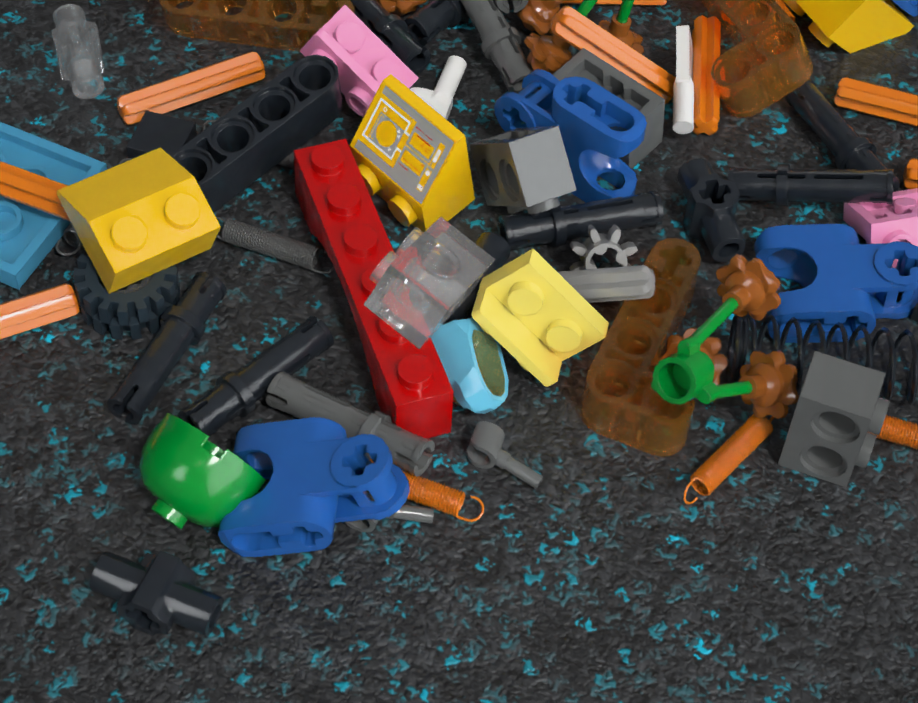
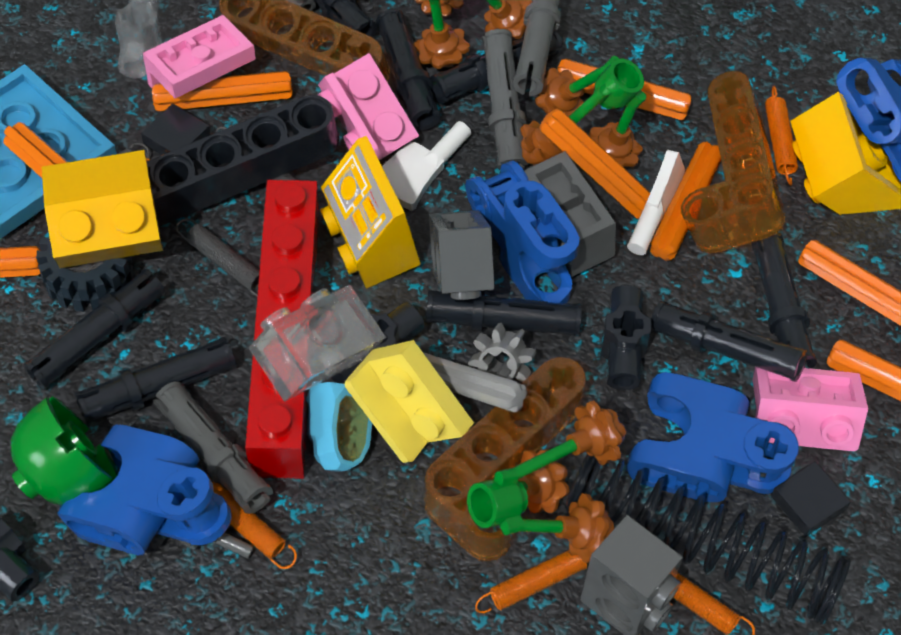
camera: 20 degrees right, 5 degrees up
(157, 56) = (198, 56): none -> bright pink bracket
(486, 451) = (321, 507): dark grey hand -> none

